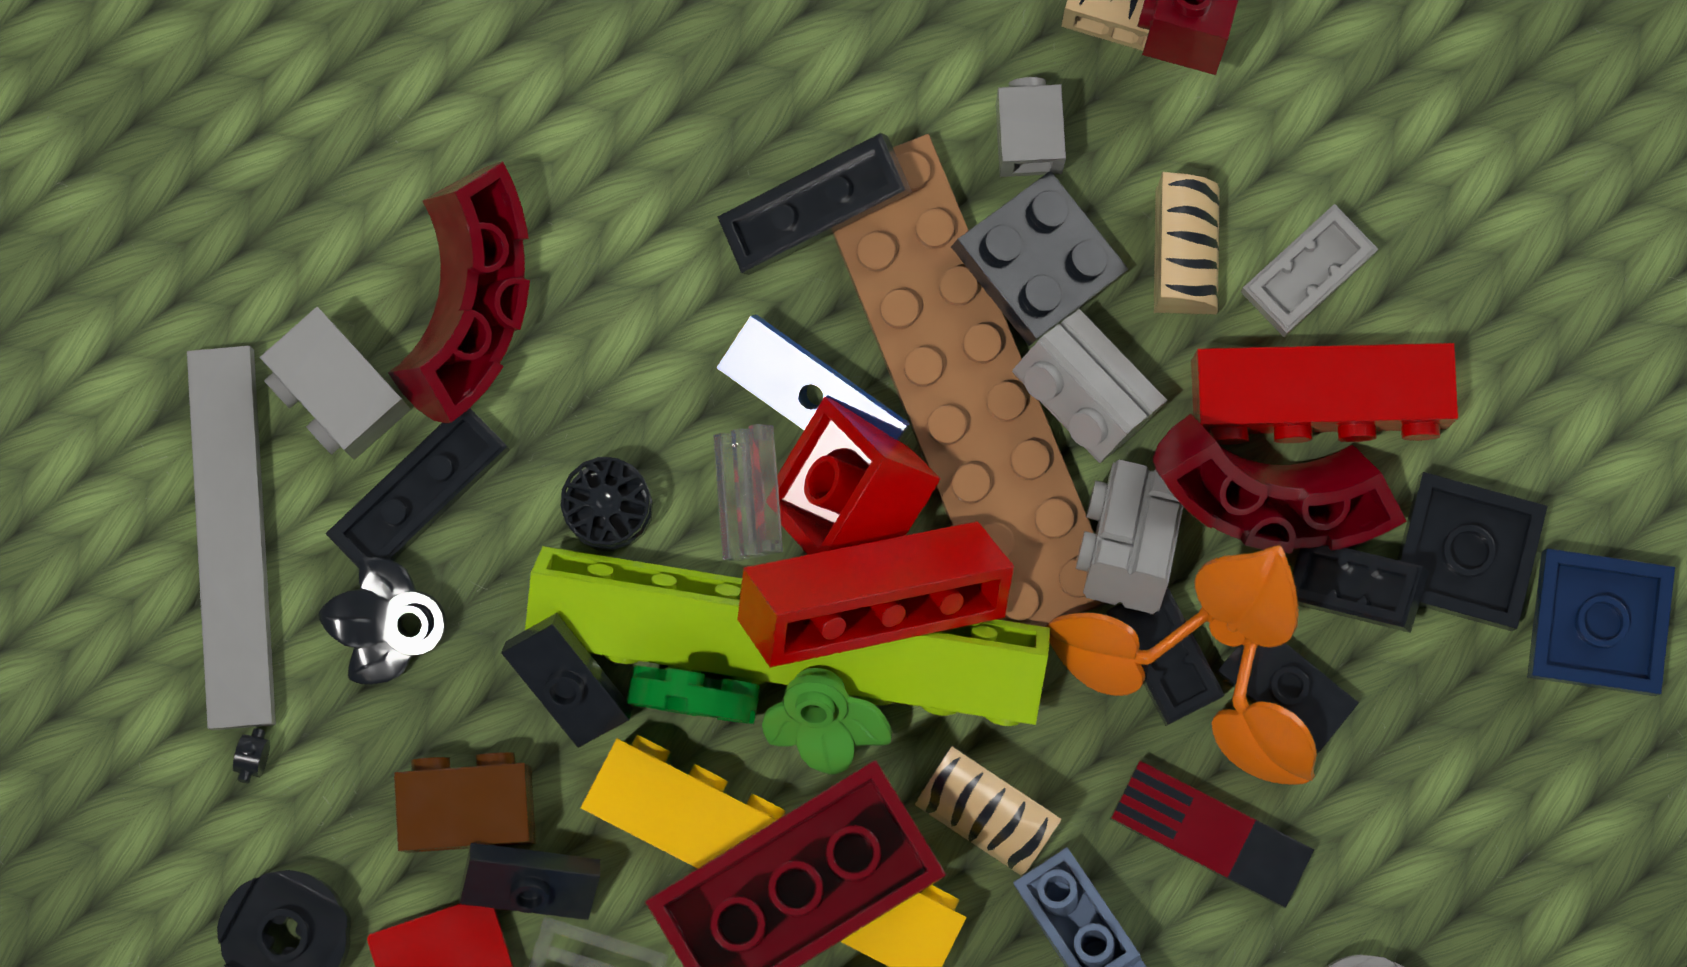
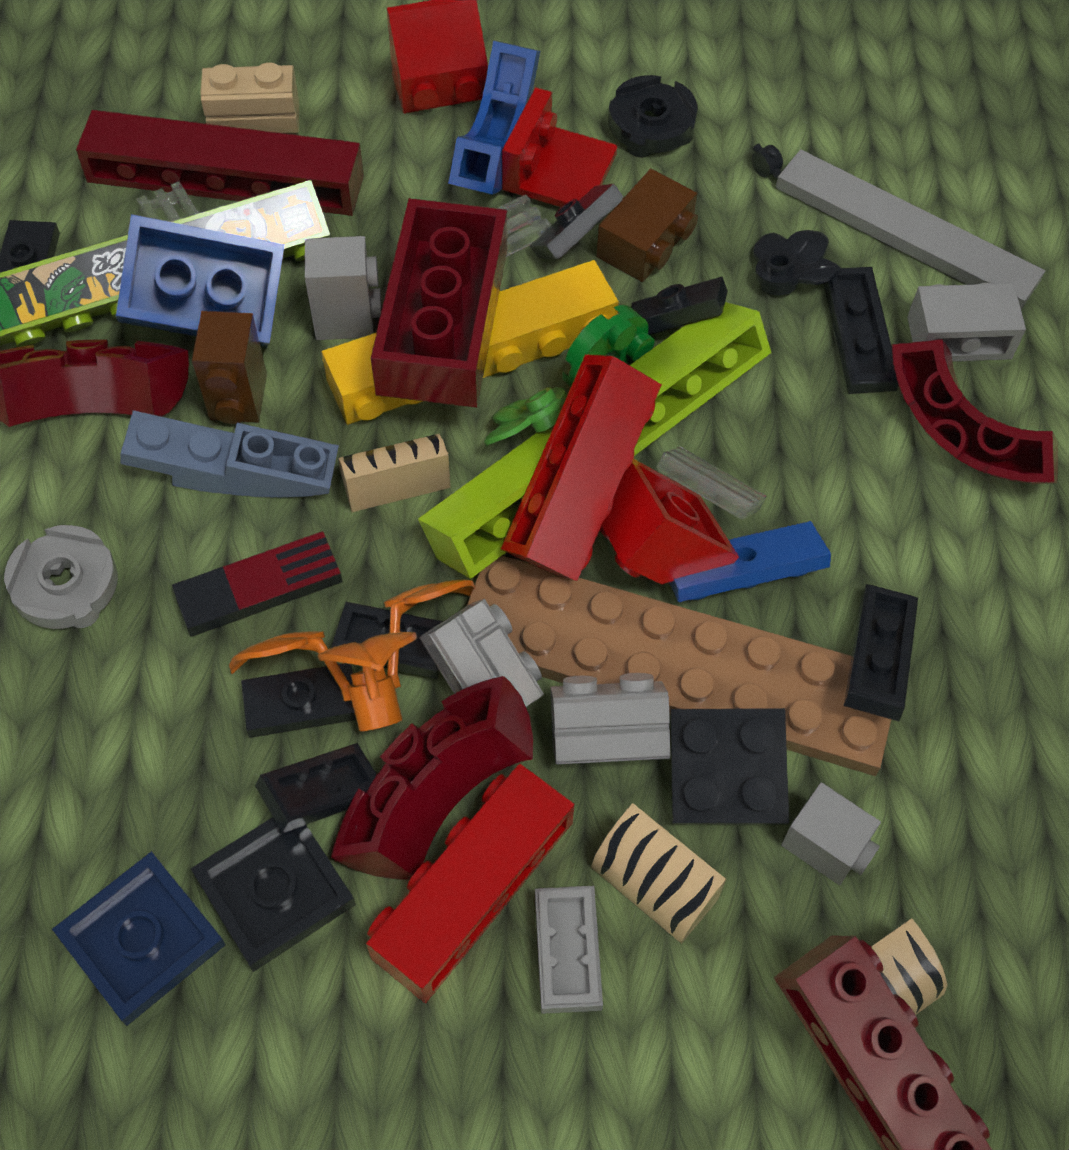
camera: 125 degrees right, 20 degrees down
(606, 504) = (758, 397): black wheel -> none

